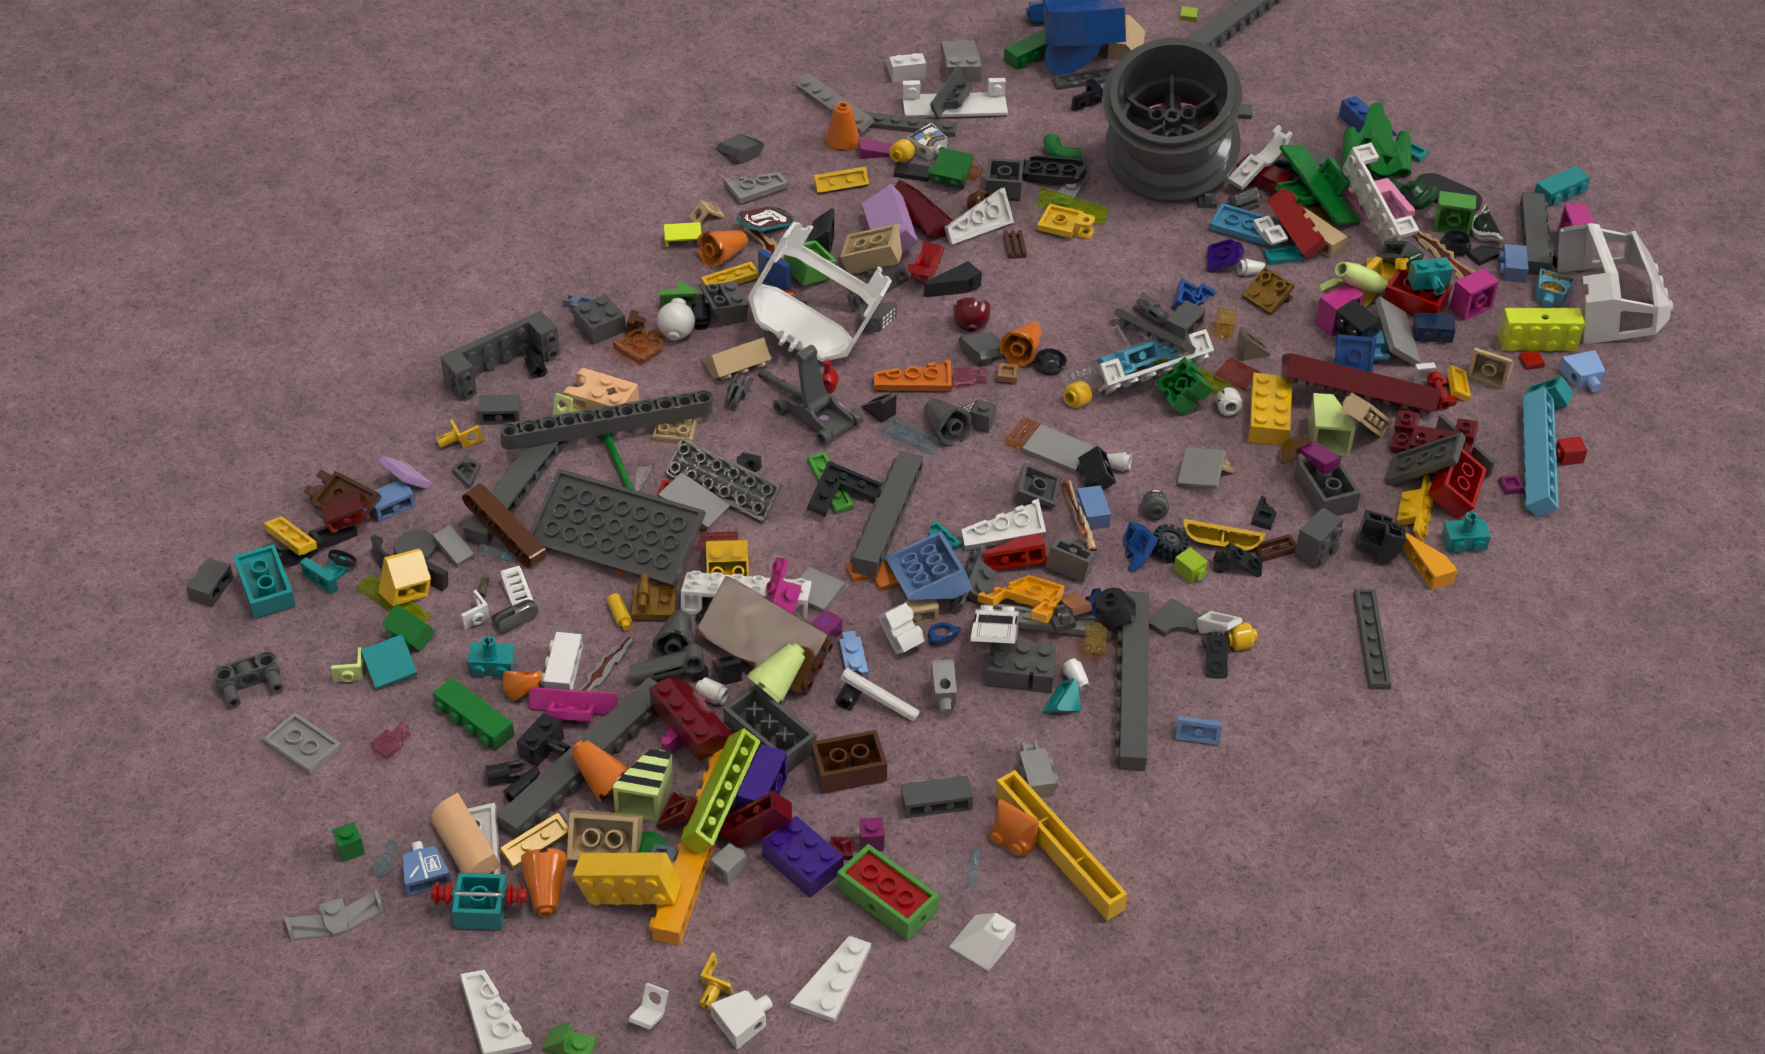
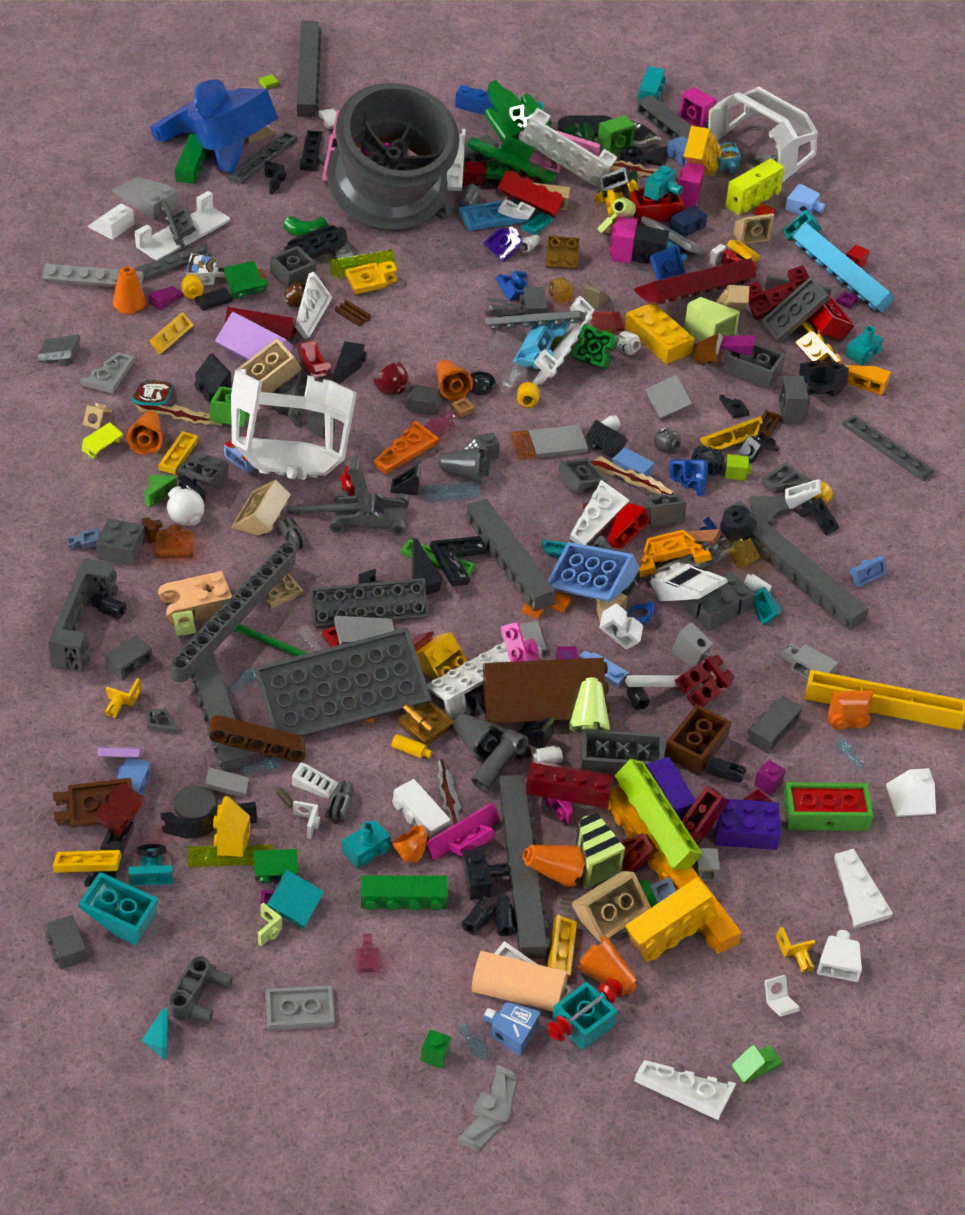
camera: 45 degrees left, 0 degrees up
(190, 691) = (157, 1035): none -> teal slope
(779, 274) = (214, 427): blue tile -> none
(797, 481) = (423, 568): none -> black slope
(845, 801) = (726, 769): none -> black hinge
(916, 719) = (711, 677): none -> dark red hips
(1225, 601) = (783, 478): none -> dark grey wing
(1511, 265) = (703, 149): none -> yellow brick

